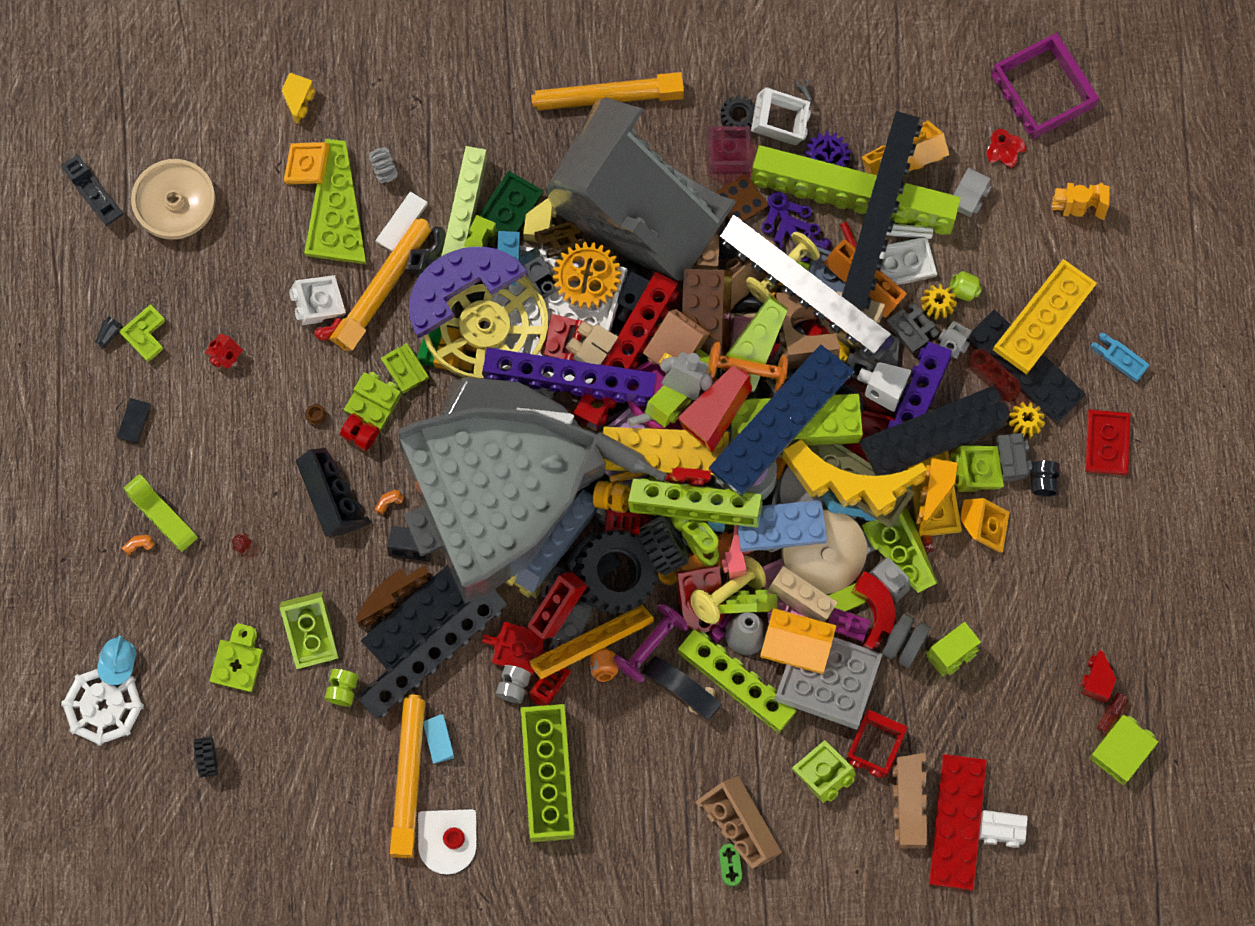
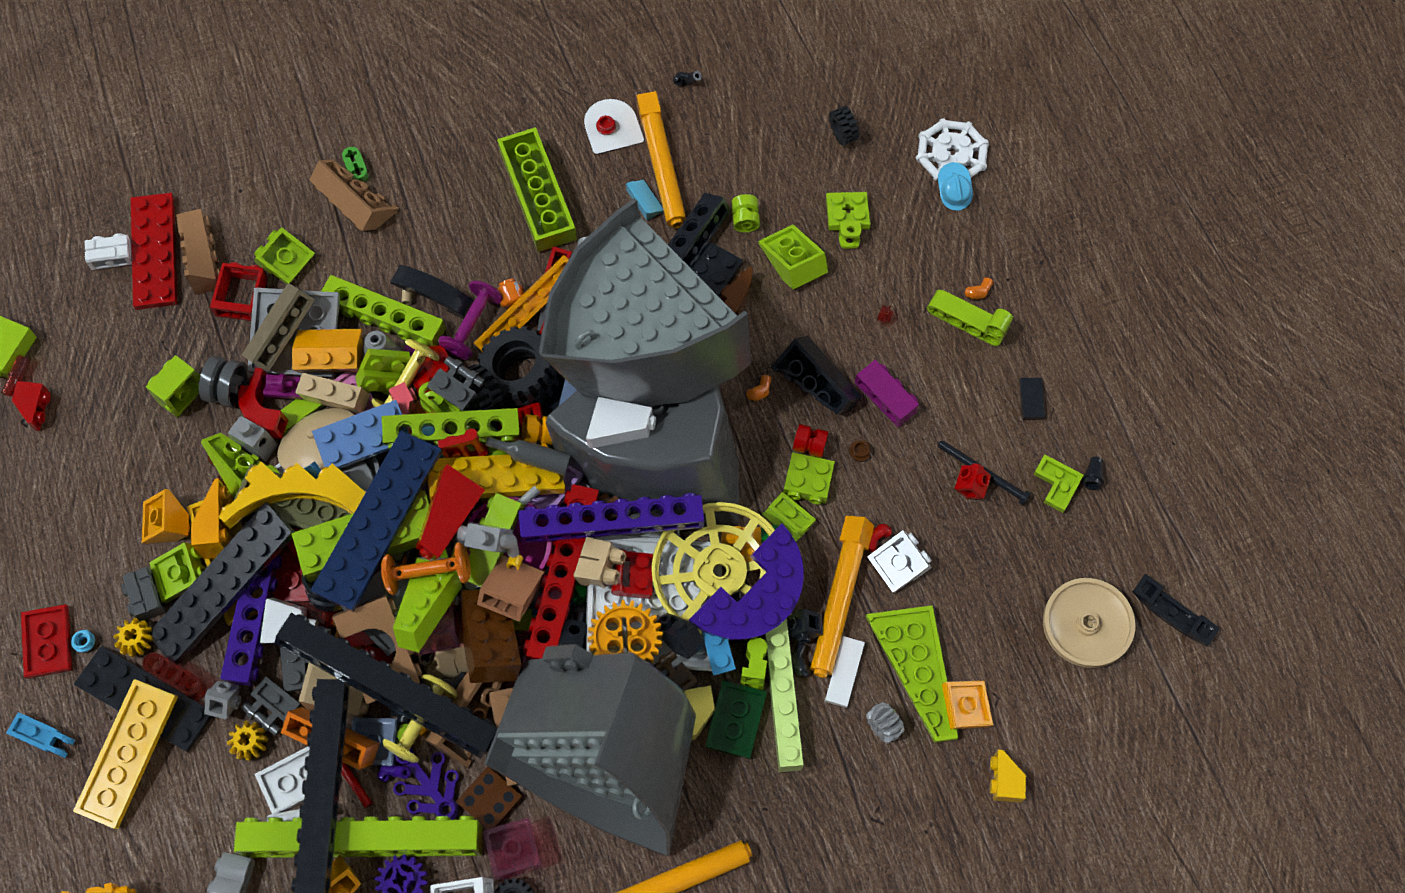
camera: 165 degrees right, 5 degrees down
(181, 329) = (1022, 496): none -> black bar
(269, 460) = (887, 393): none -> magenta brick
(347, 871) = (686, 78): none -> black arm
(684, 532) = (451, 389): none -> dark grey plate
(841, 672) = (278, 327): none -> dark tan brick
(965, 286) = (220, 766): lime head -> none
(1045, 478) = (105, 578): black wheel -> none
(1073, 426) = (78, 637): none -> medium azure plate

